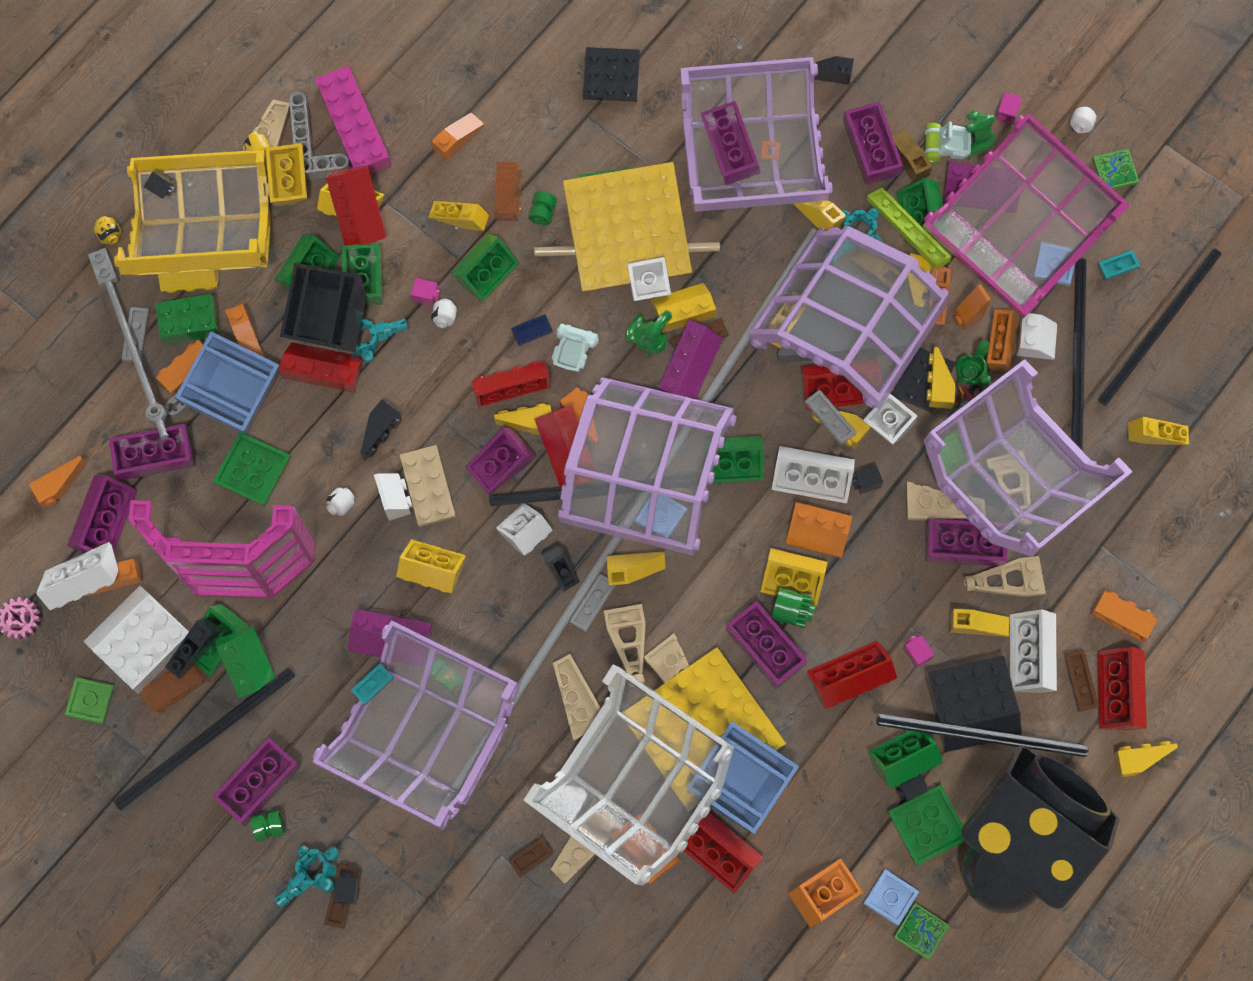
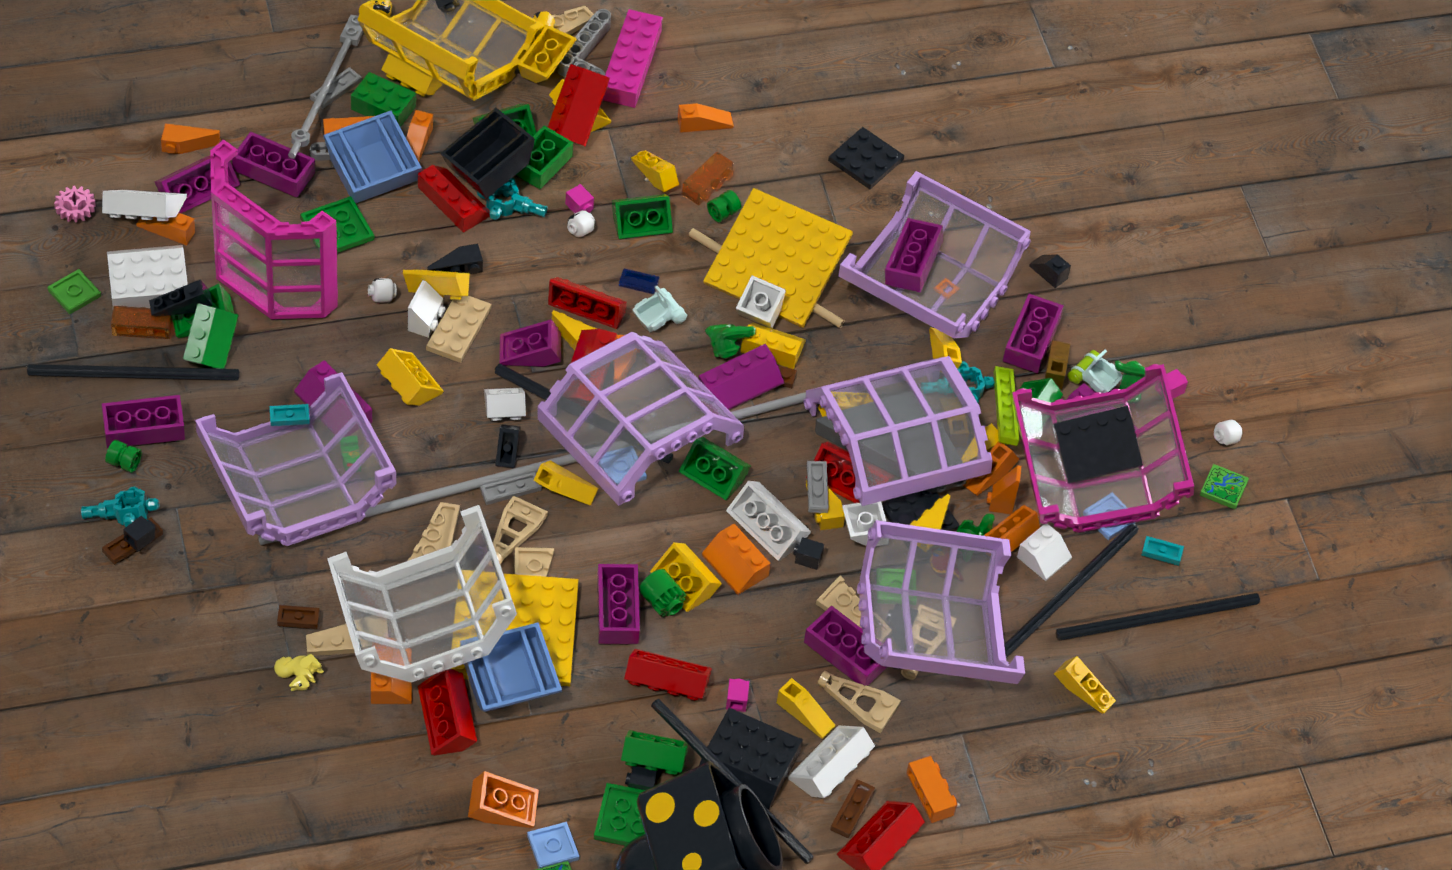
camera: 30 degrees right, 20 degrees down
(382, 461) = (442, 282): none -> yellow slope
(571, 901) = (301, 667): none -> light yellow animal
(1013, 215) = (1097, 444): none -> black slope

